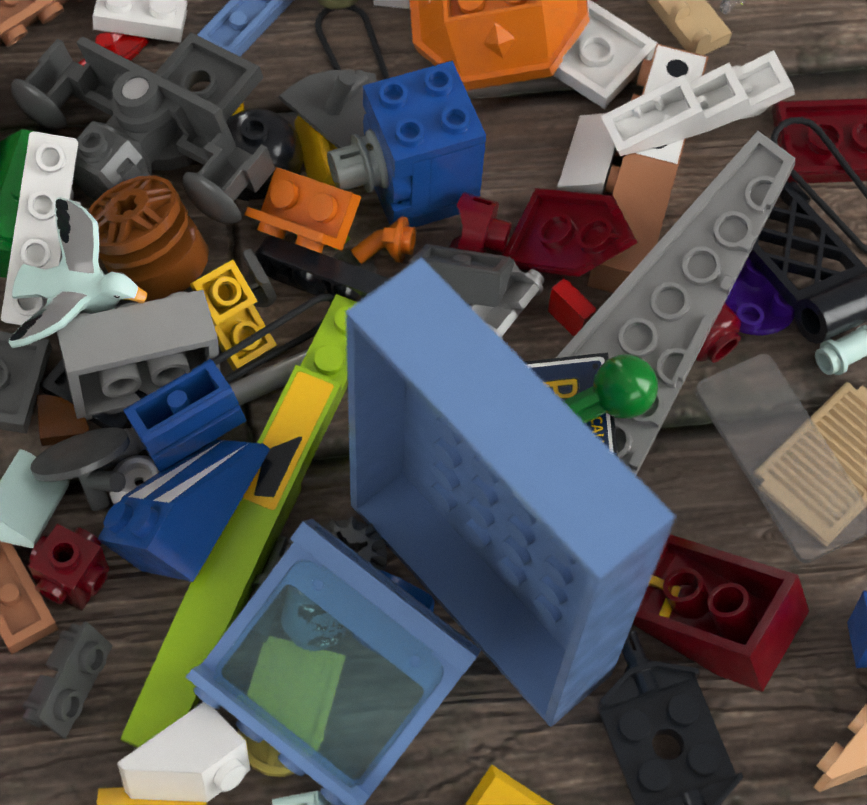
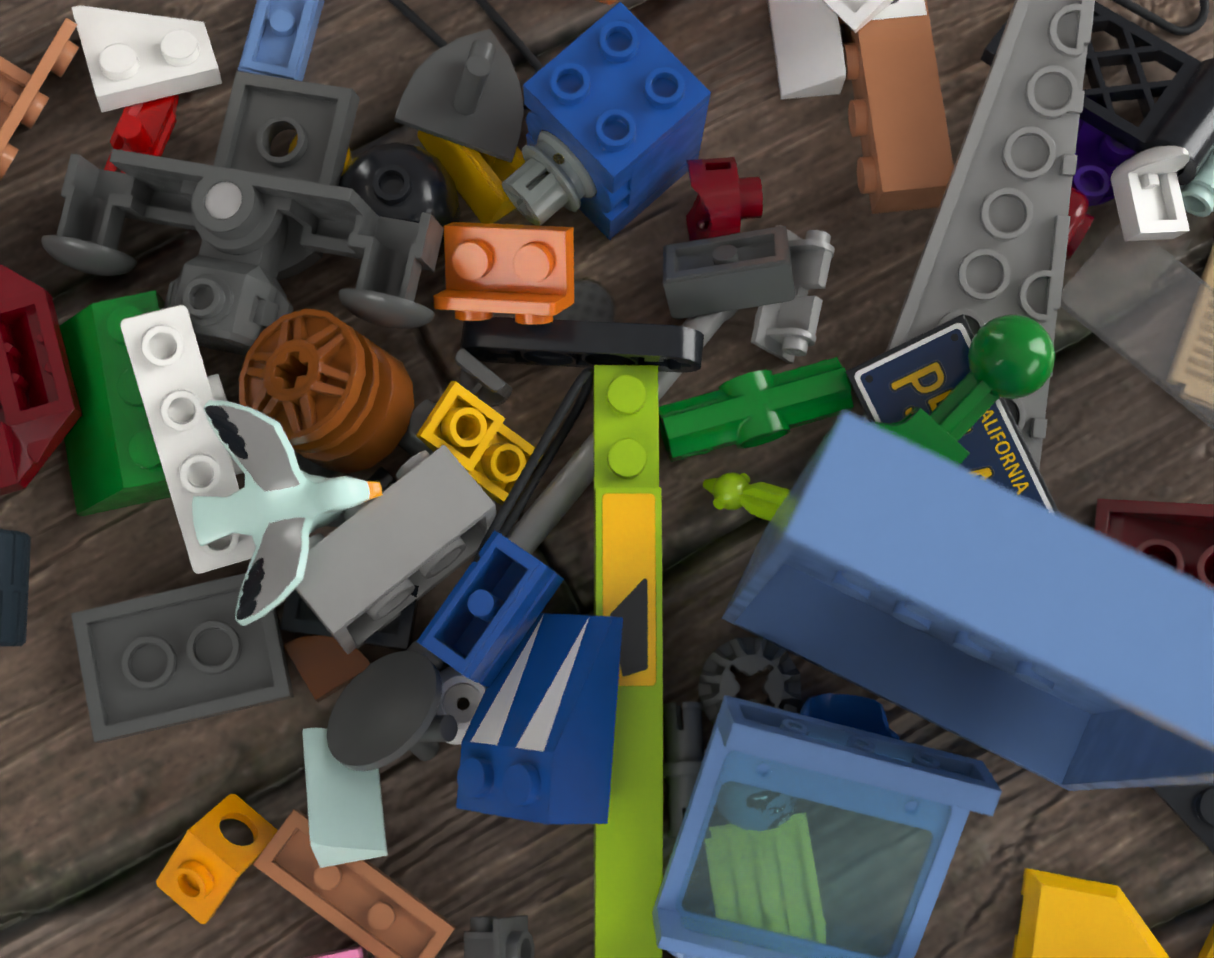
camera: 25 degrees left, 15 degrees up
(66, 579) = (463, 848): dark red brick -> none
(397, 239) = (624, 252): orange plate -> none
(568, 232) = (836, 163): dark red tile -> none
(570, 307) = (877, 260): red tile -> none
(788, 337) = (1150, 194): none -> white plate

